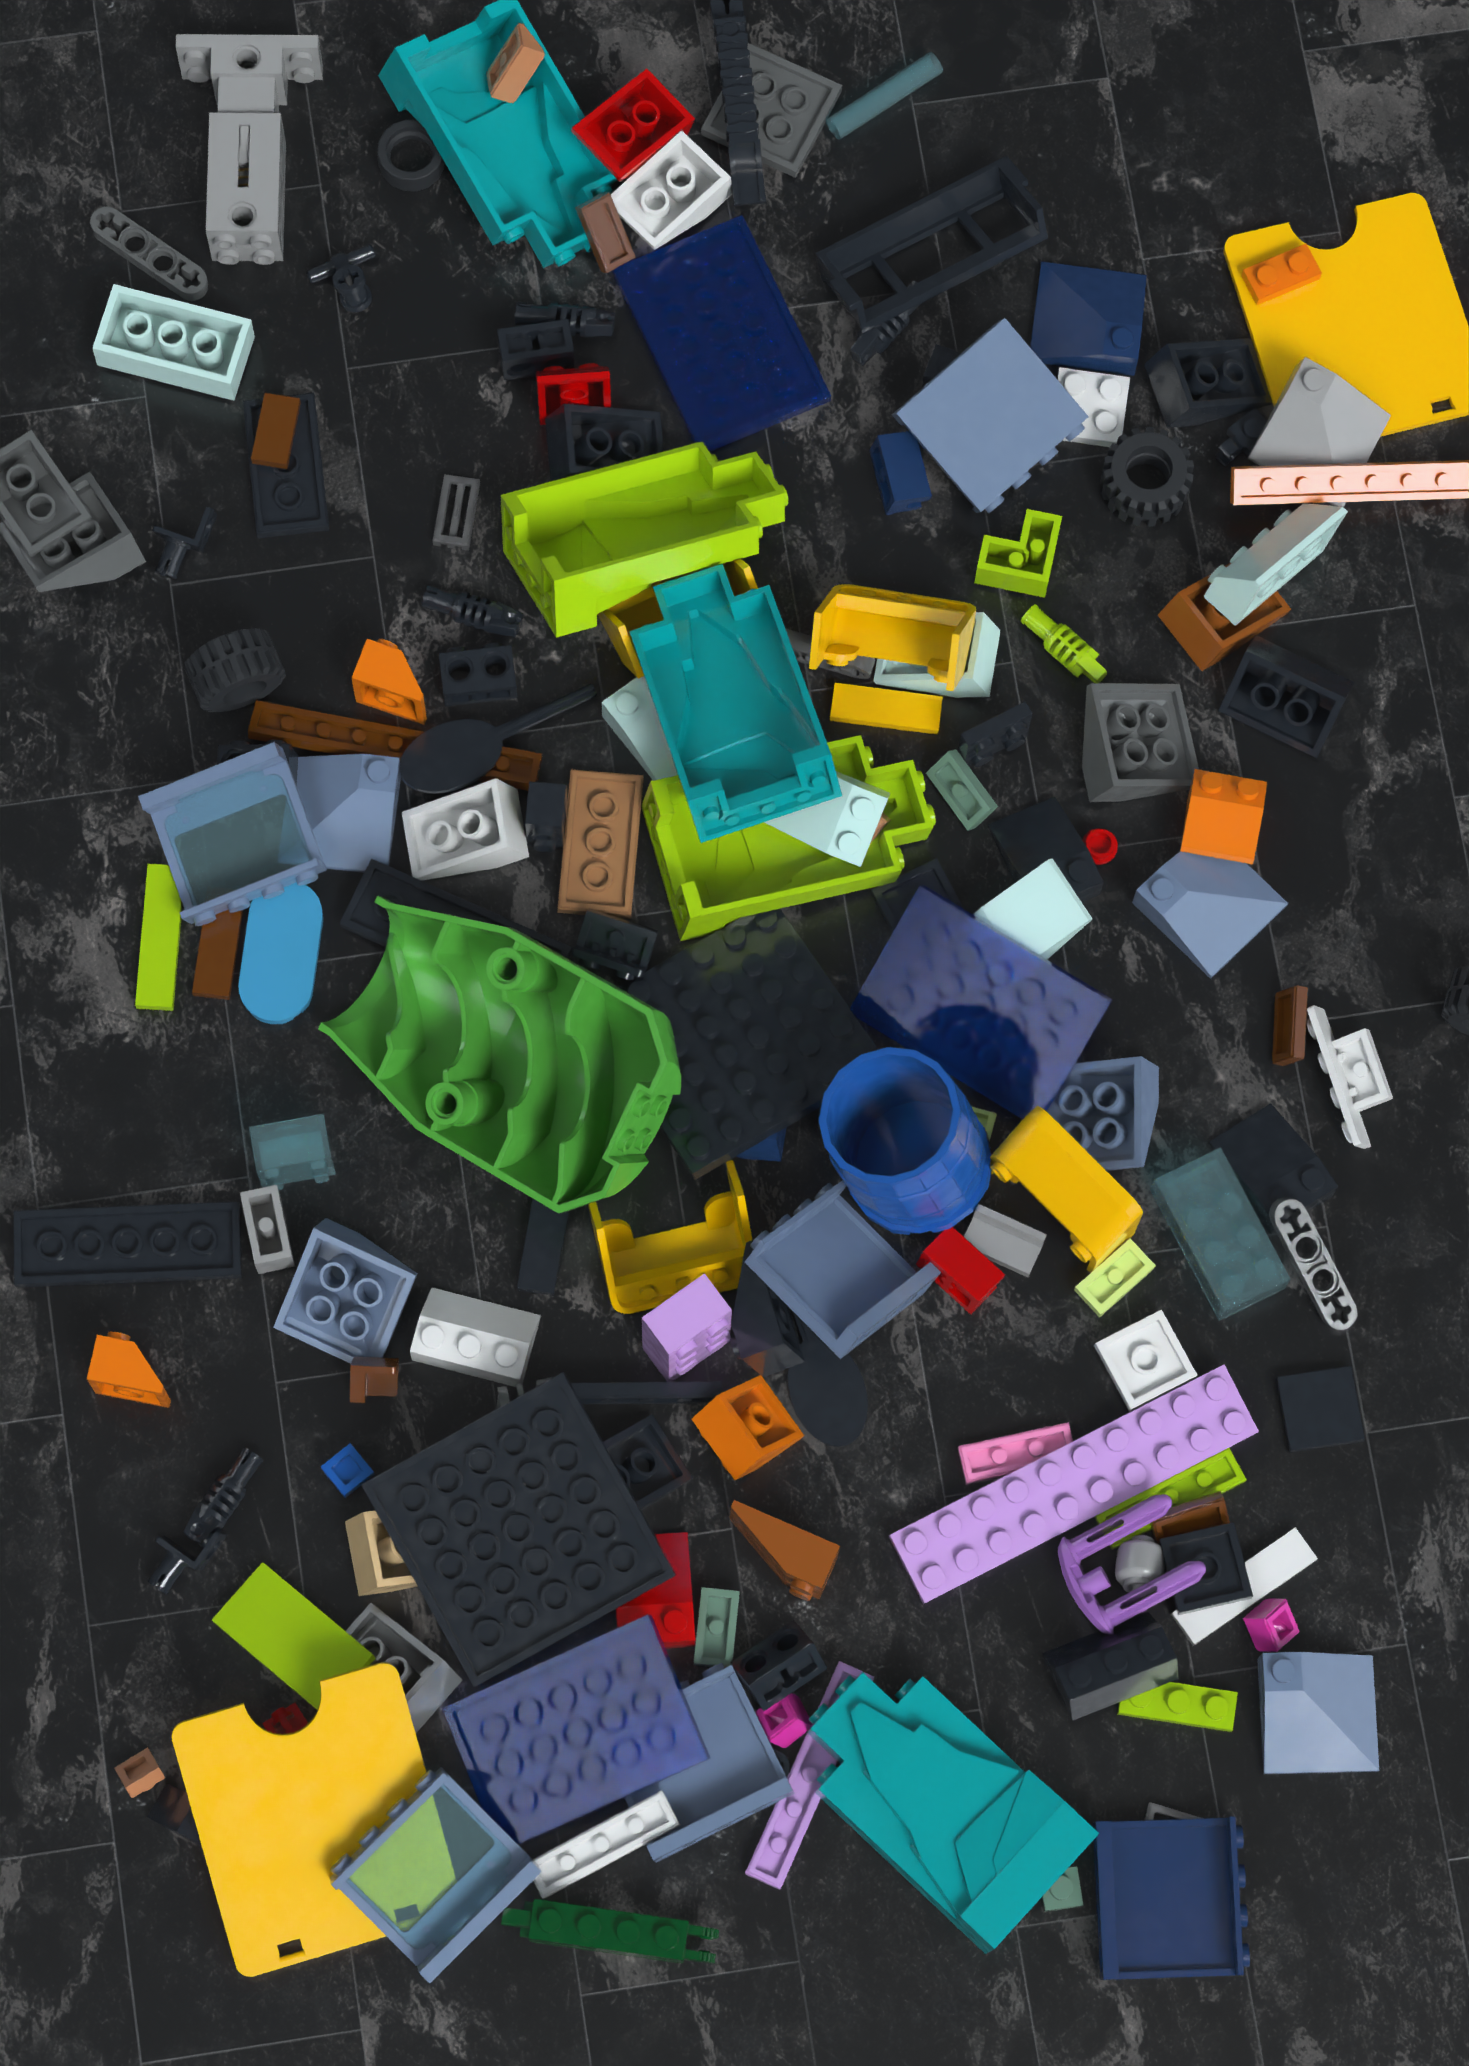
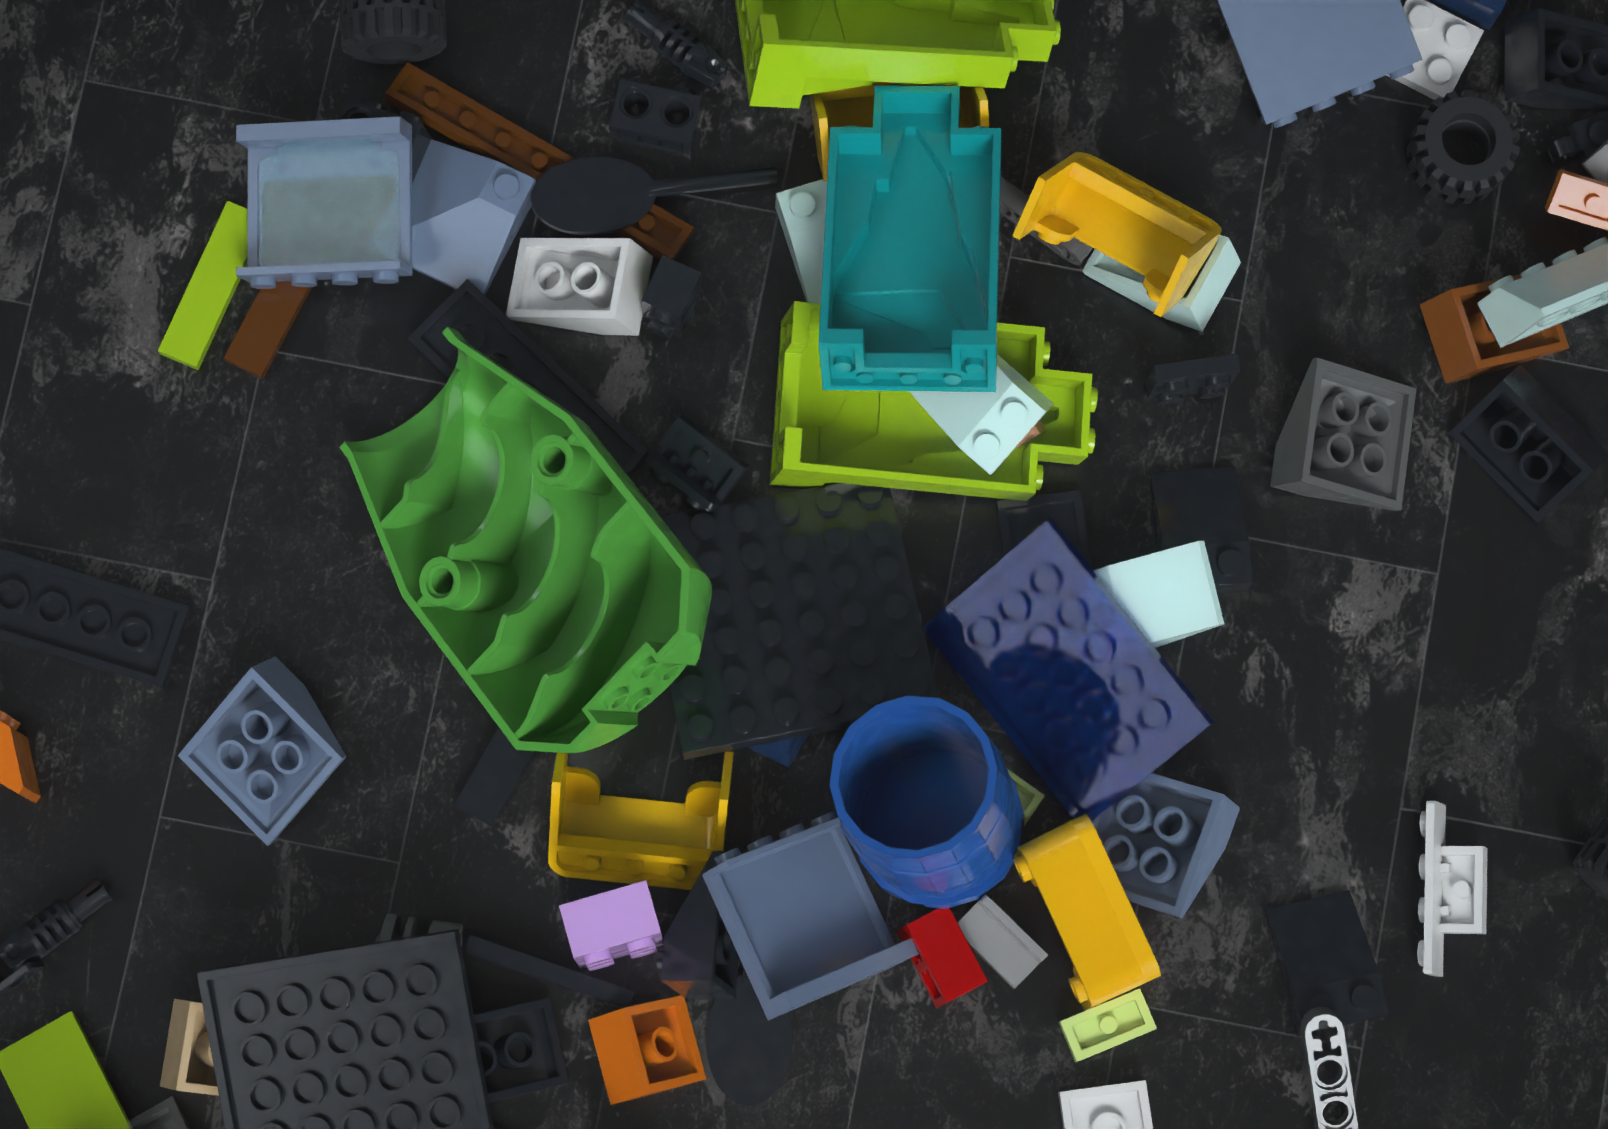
camera: 15 degrees right, 5 degrees up
(267, 1229) = (206, 648): light grey brick -> none
(281, 954) = (334, 350): dark azure tile -> none
(292, 1151) = (263, 572): clear light blue container -> none
(347, 1470) = (198, 942): blue plate -> none
(373, 1377) = (261, 848): reddish brown panel -> none
(387, 683) = (551, 89): orange slope -> none
(474, 1337) = (389, 843): white slope -> none
(600, 843) = (722, 347): medium nougat tile -> none
(886, 708) = (1085, 305): yellow tile -> none
(899, 472) = (1194, 49): dark blue hinge -> none
(961, 789) = (1135, 424): sand green plate -> none
(1022, 564) = (1292, 198): lime brick -> none
(1065, 645) = (1306, 303): lime hinge -> none
(1101, 845) = (1265, 538): red plate -> none
(1208, 906) = (1362, 642): sand blue slope -> none
(1220, 1234) = (1240, 1018): clear light blue brick -> none
(1223, 816) = (1411, 555): orange slope -> none
(1289, 1025) = (1401, 812): reddish brown tile -> none

